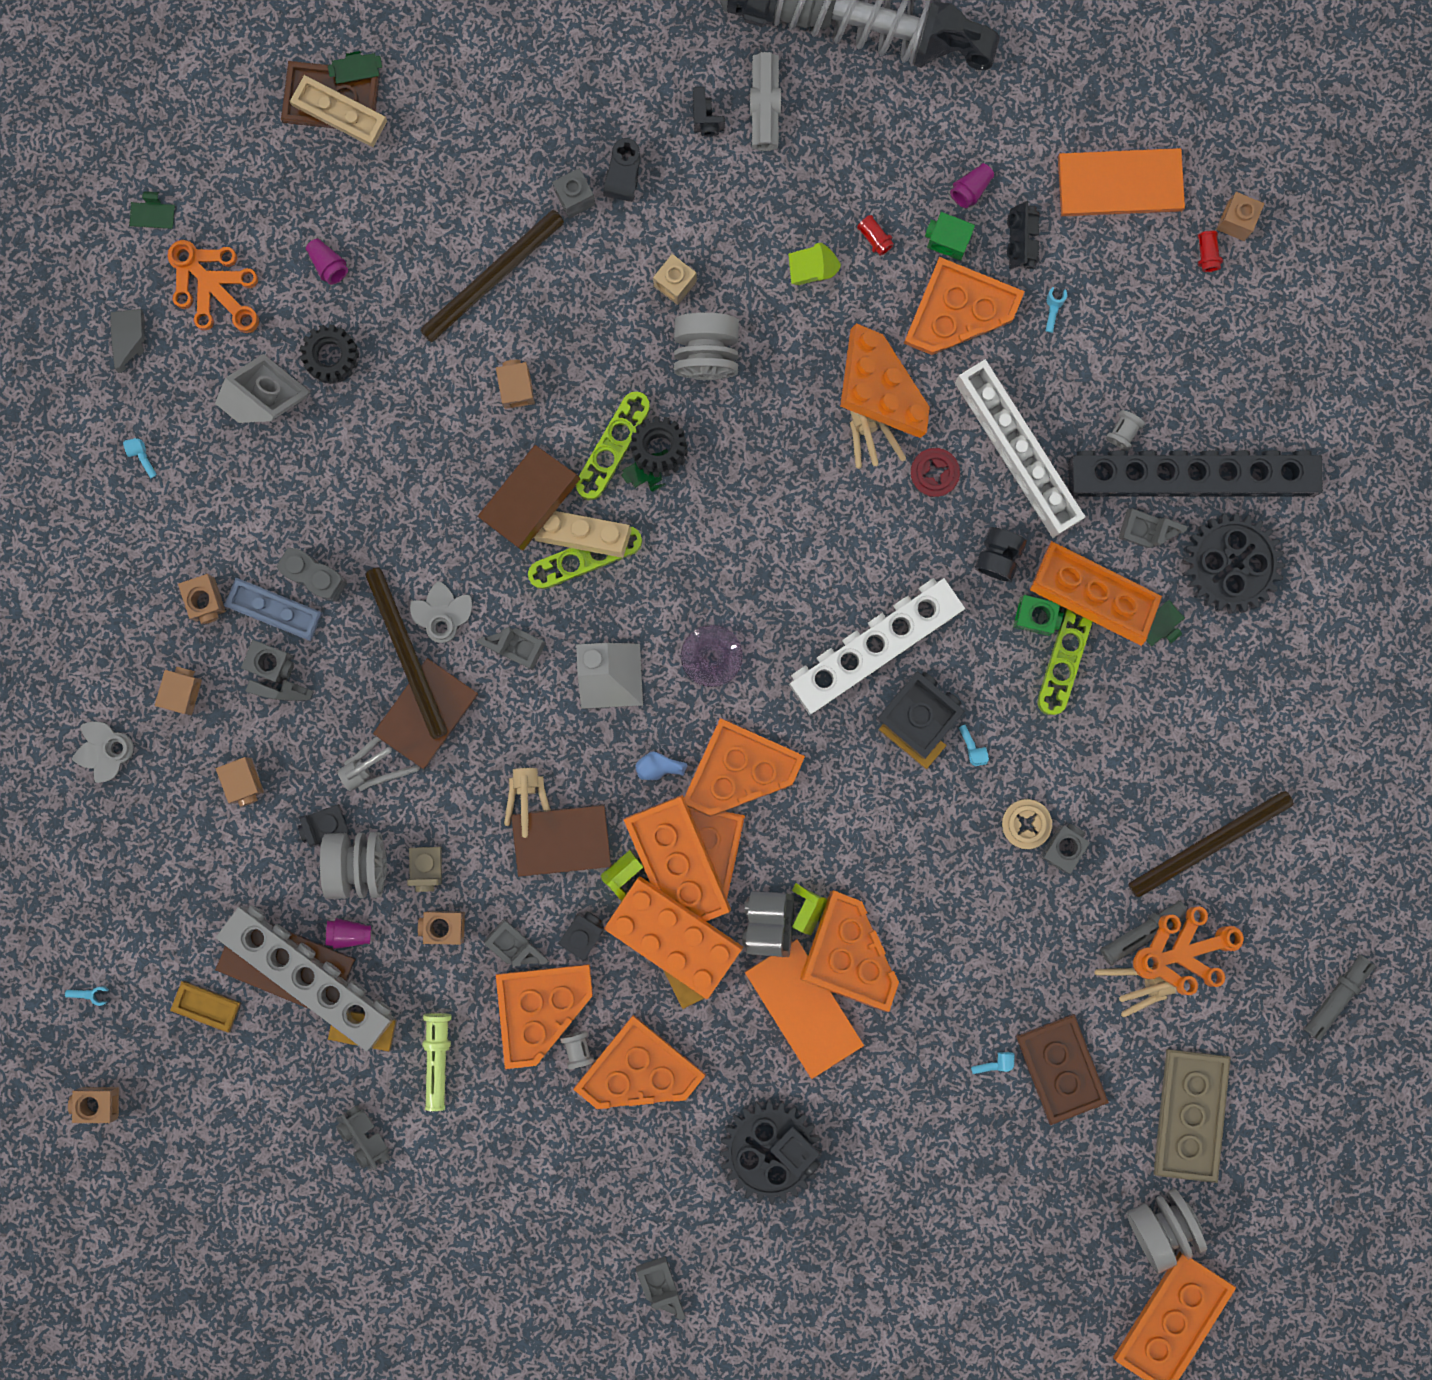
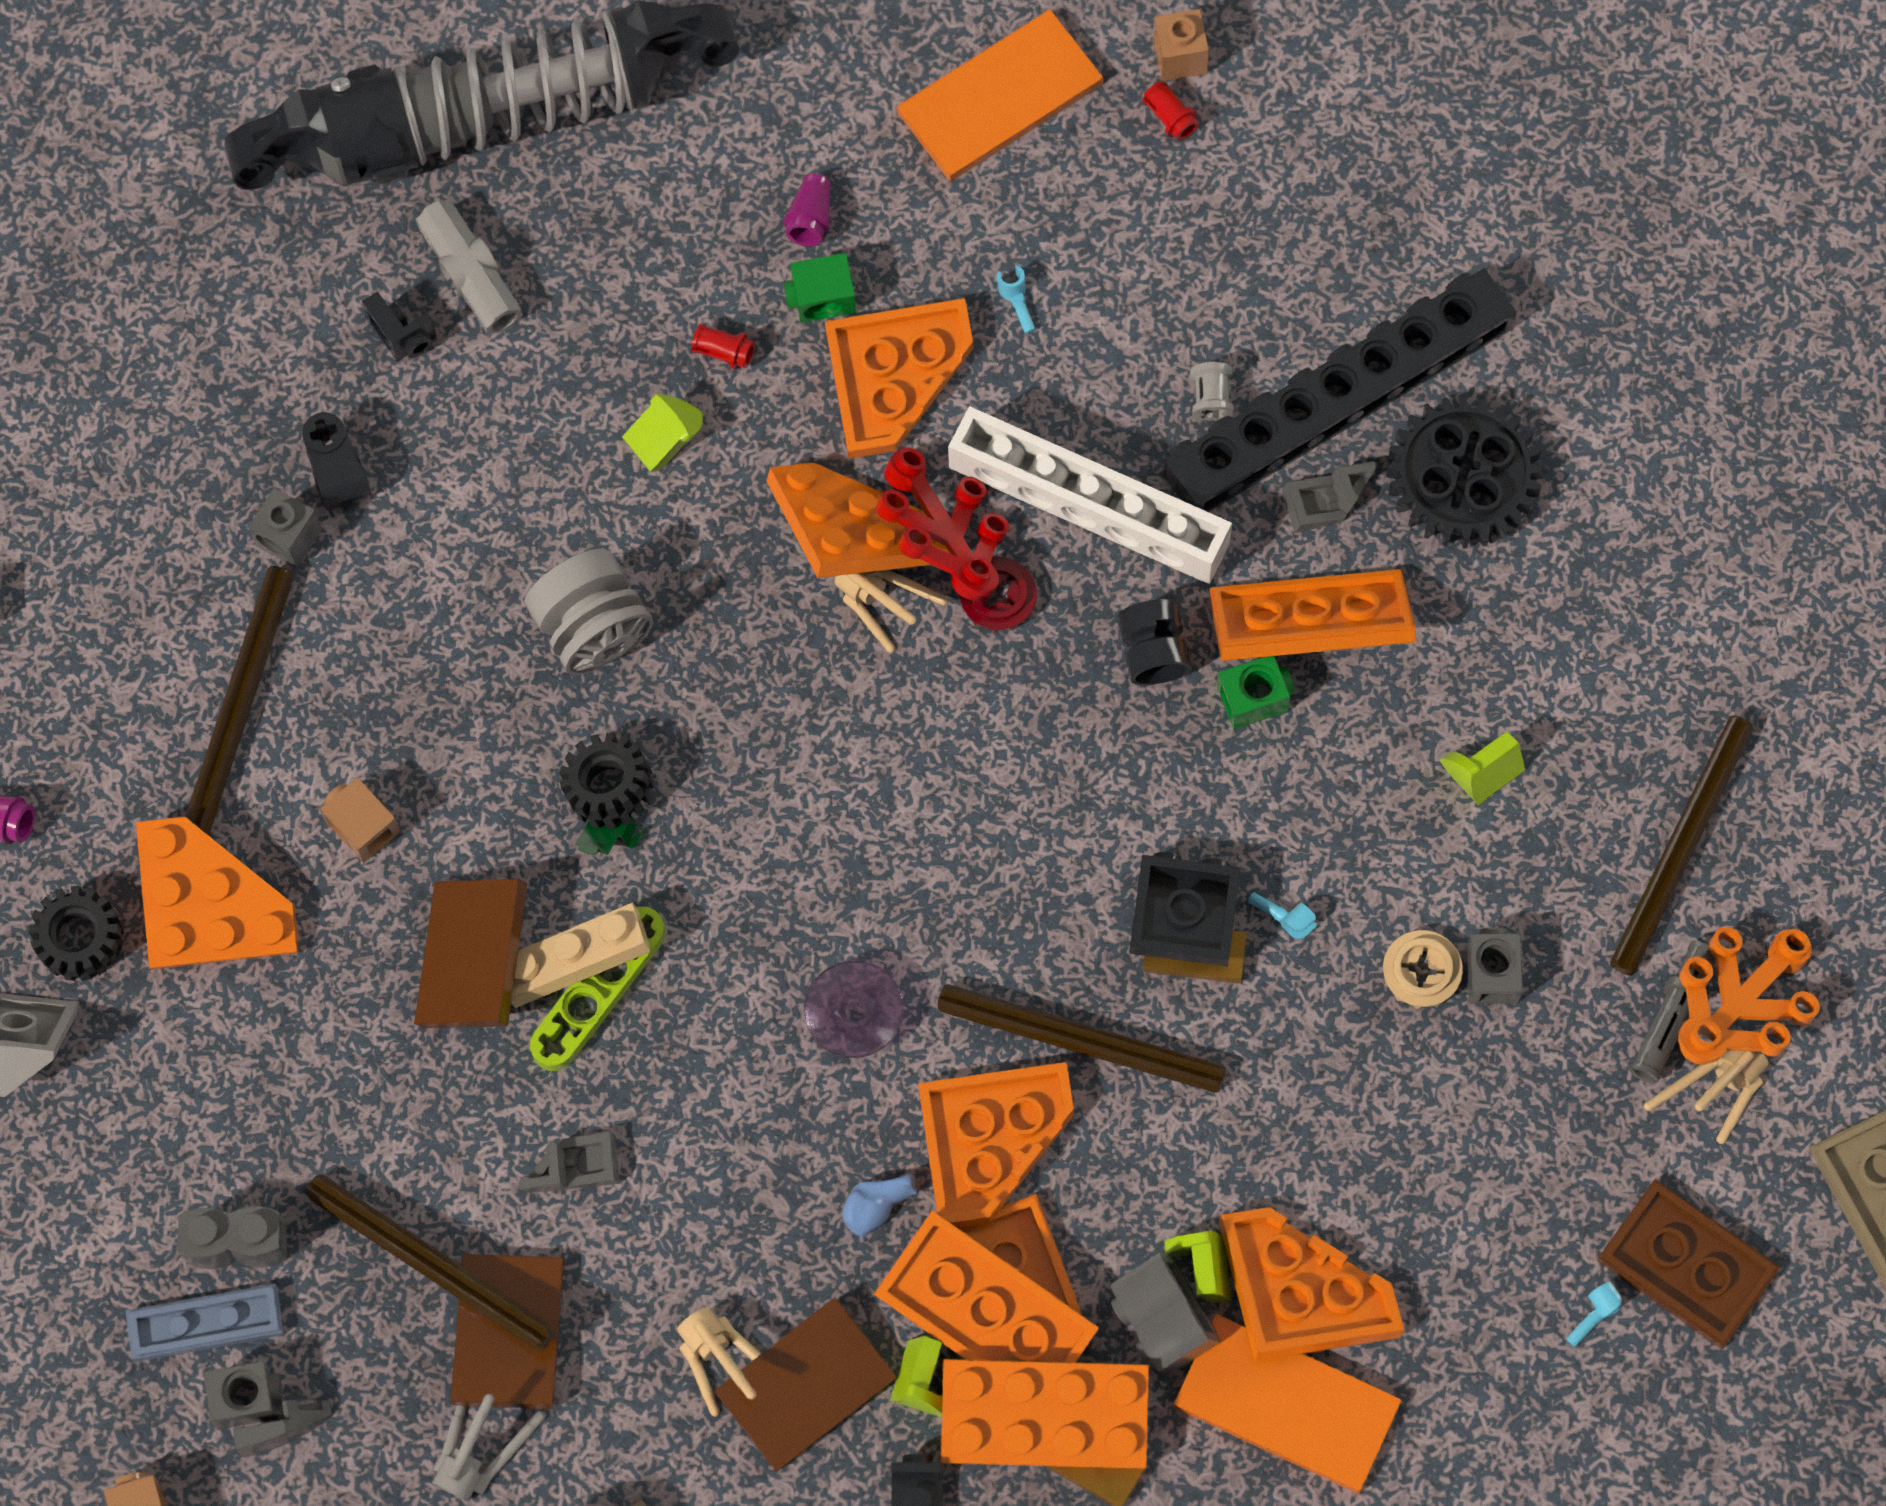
camera: 30 degrees left, 15 degrees down
(193, 589) = (84, 1349): medium nougat brick -> none
(408, 379) = (206, 901): none -> orange plate
(441, 607) = (441, 1176): light grey plate -> none
(609, 444) = (547, 820): lime beam -> none
(609, 675) = (729, 1121): light grey slope -> none
(675, 279) = (491, 555): tan brick -> none
(822, 746) = (1081, 1038): none -> dark brown axle
(928, 452) = (971, 572): none -> red plant
(945, 606) = (1028, 977): white brick -> none
(1021, 250) = (906, 217): black hinge -> none
(1069, 658) = (1330, 723): lime beam -> none
(1133, 738) = (1487, 769): none -> lime tile
(1163, 624) = (1428, 603): dark green piece -> none

